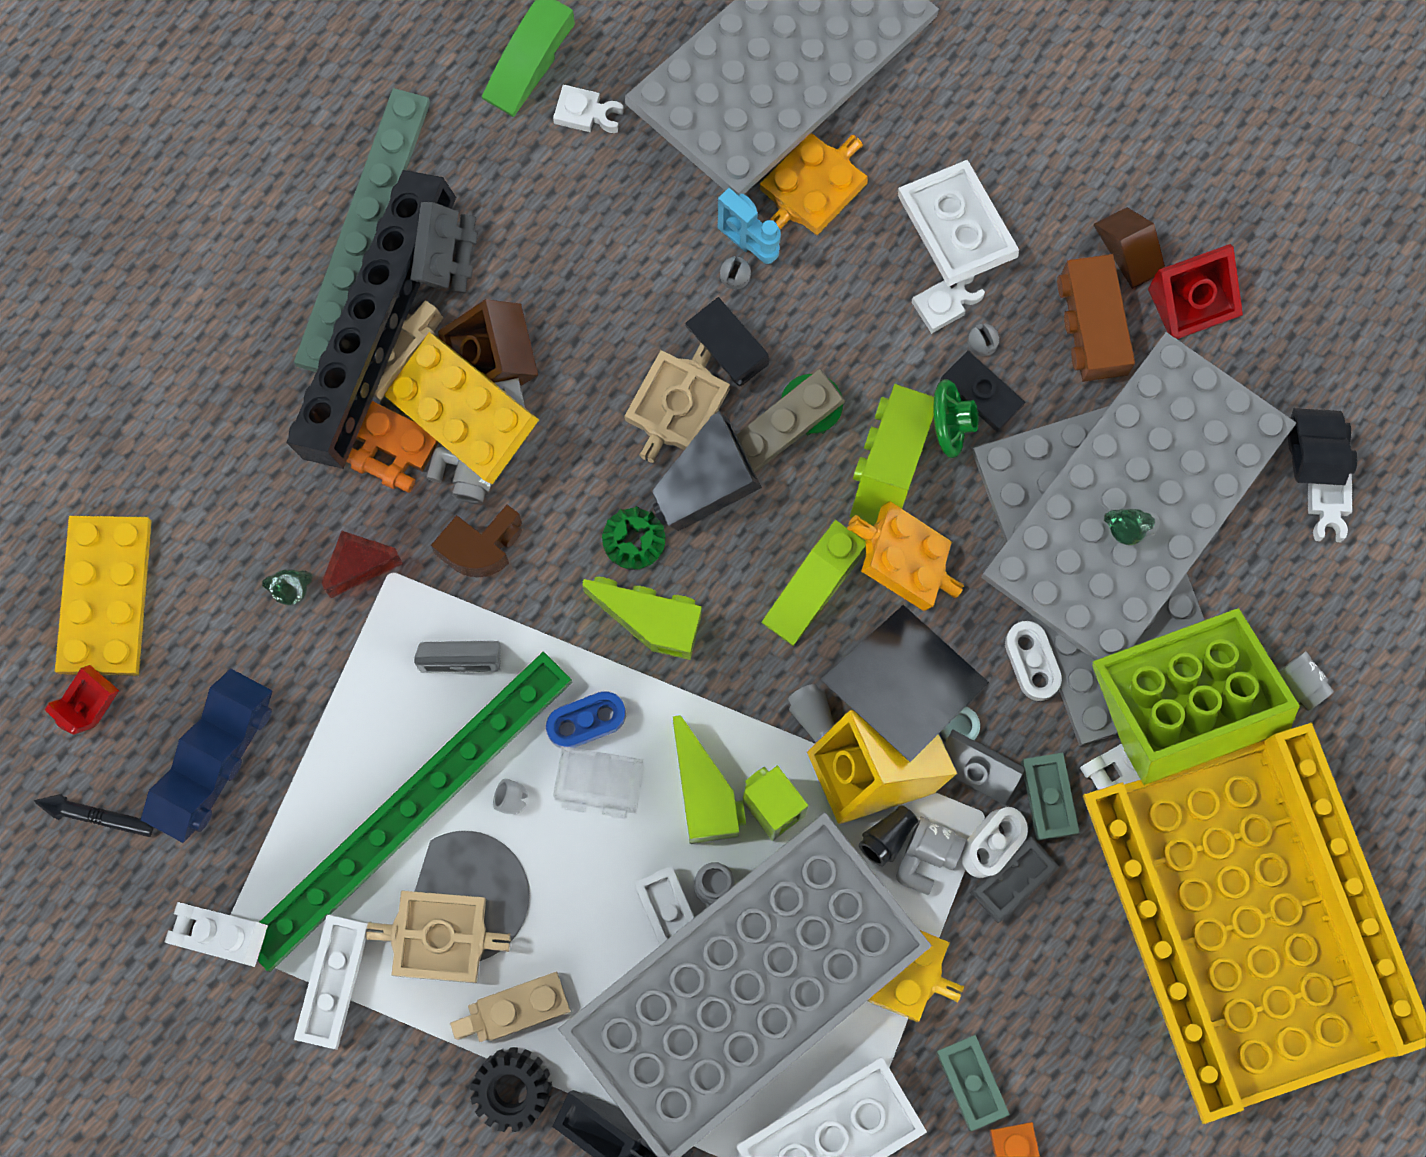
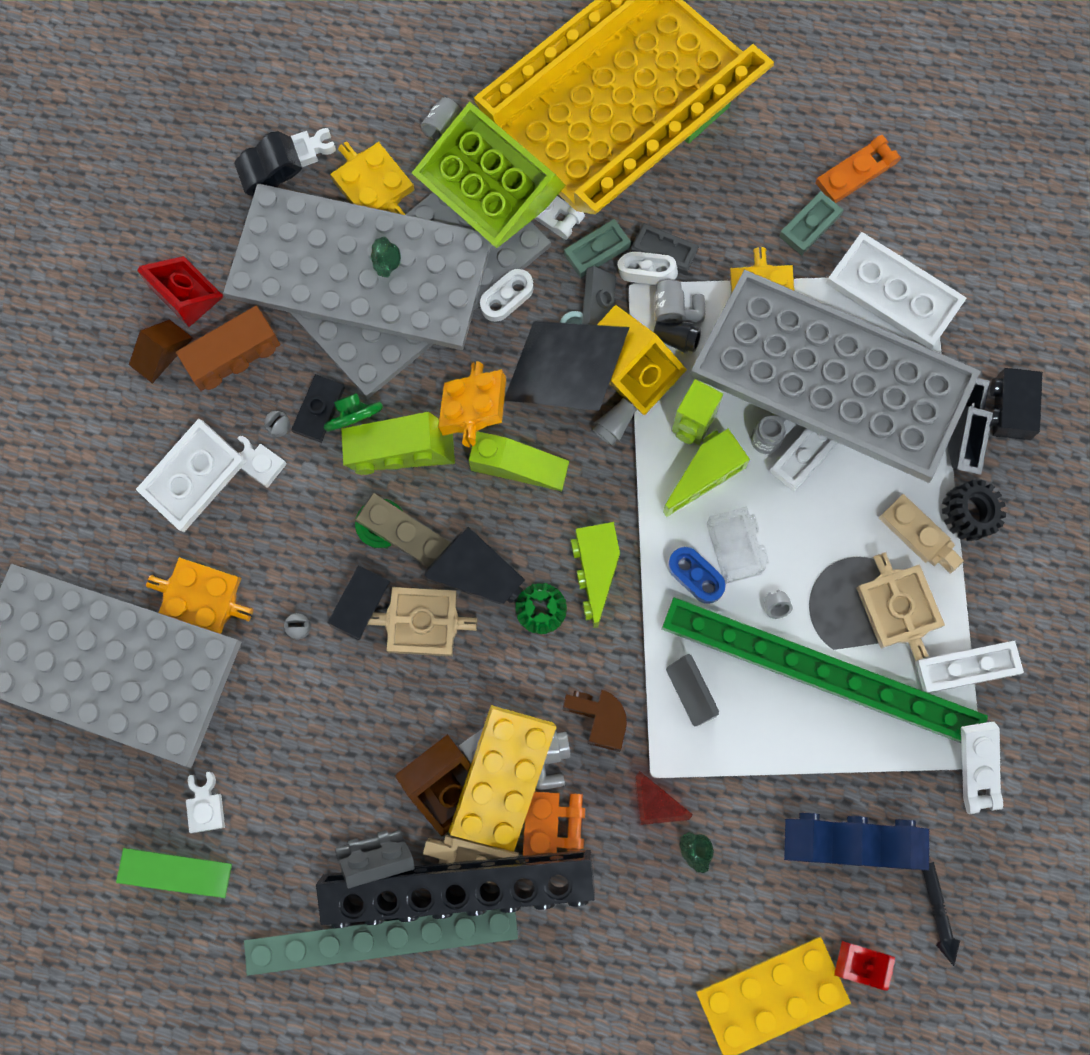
camera: 110 degrees left, 0 degrees up
(739, 222) = (258, 630): medium azure plate -> none
(1253, 565) = (372, 179): none -> yellow plate

